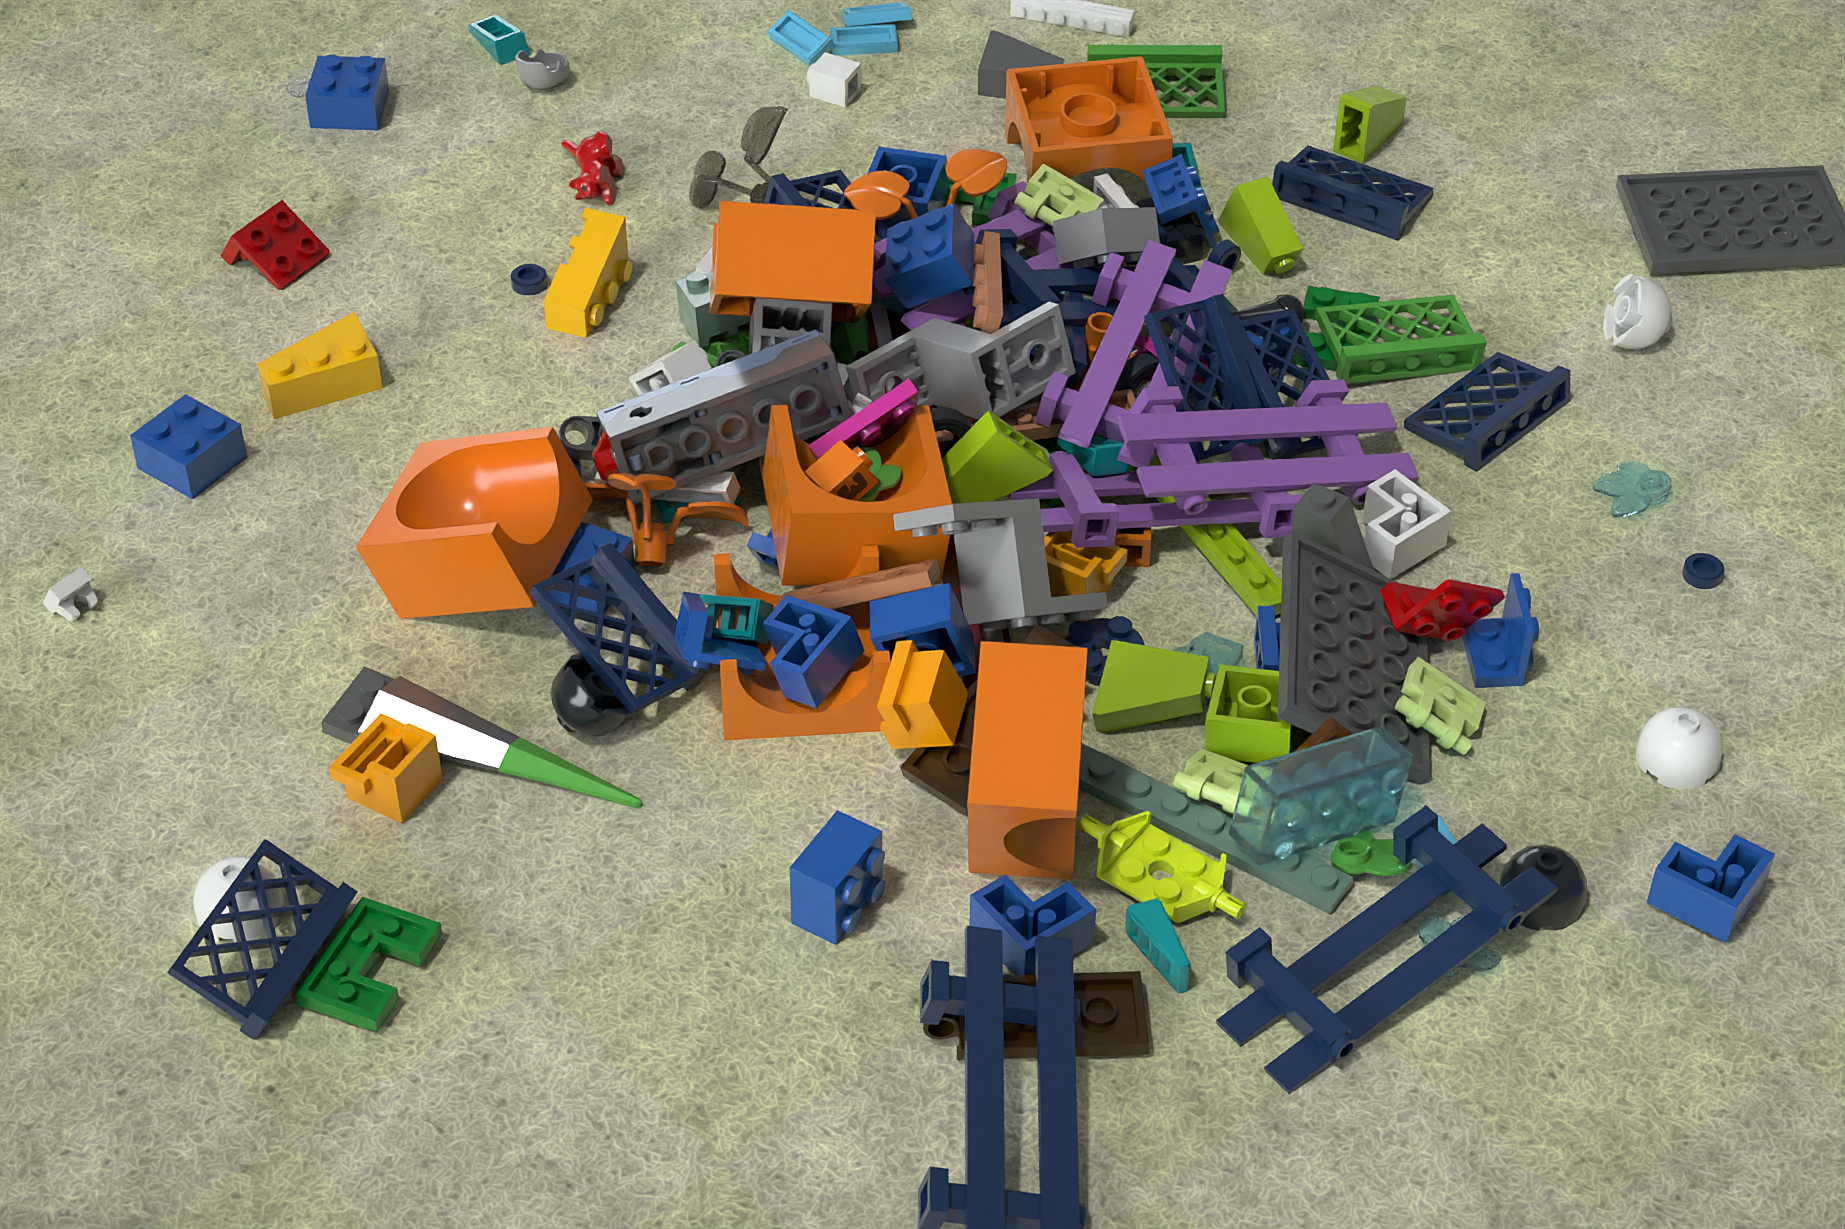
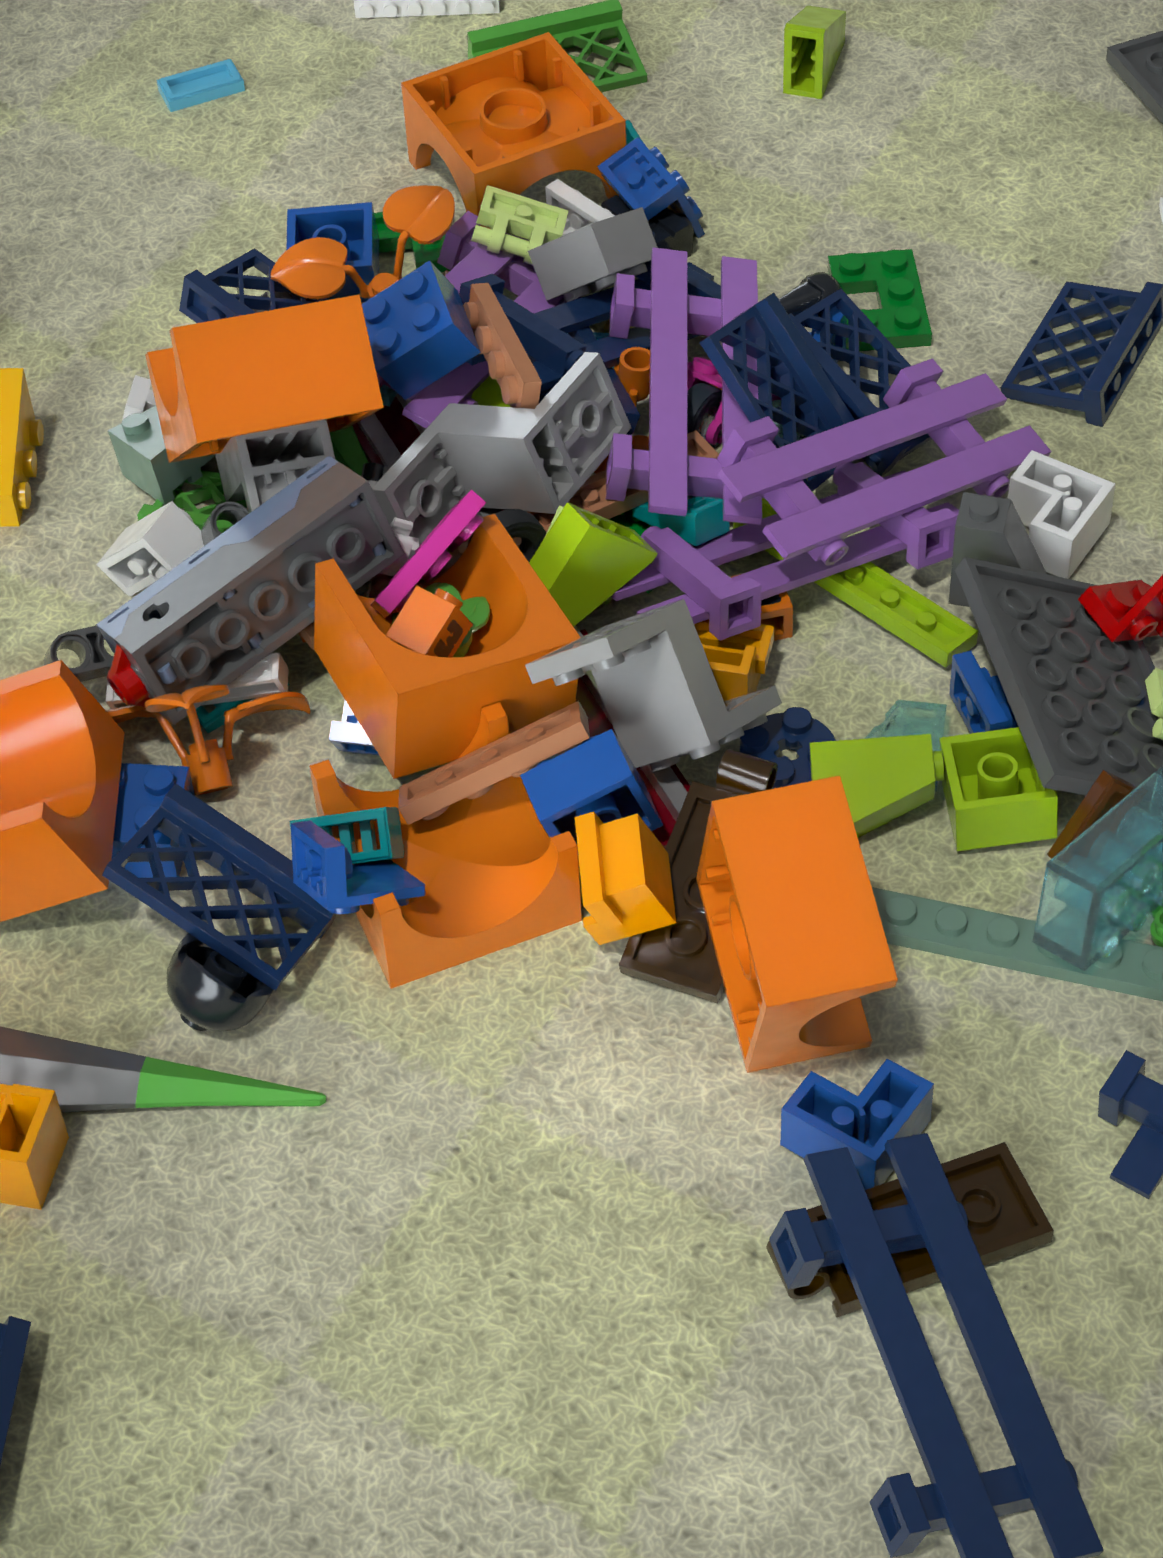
camera: 15 degrees left, 5 degrees up
(339, 978) = (45, 1446): green plate -> none
(756, 141) = (149, 235): clear smoke plant -> none
(800, 38) = (128, 100): medium azure tile -> none
(811, 648) = (470, 847): blue brick -> none
(834, 79) = (188, 140): white brick -> none
(837, 878) = (611, 1131): blue brick -> none
(876, 14) = (203, 51): medium azure tile -> none
(1007, 53) = (379, 74): dark grey slope -> none
(1136, 848) = (1015, 1008): neon yellow plate -> none
(1155, 936) = (1008, 1097): teal slope -> none
(1211, 778) = (995, 877): yellowish green plate -> none
(1225, 254) = (722, 243): dark blue tile -> none
(1261, 226) = (751, 200): lime slope -> none
(1336, 197) = (832, 148): dark blue fence -> none
(1401, 355) = (972, 311): bright green fence -> none

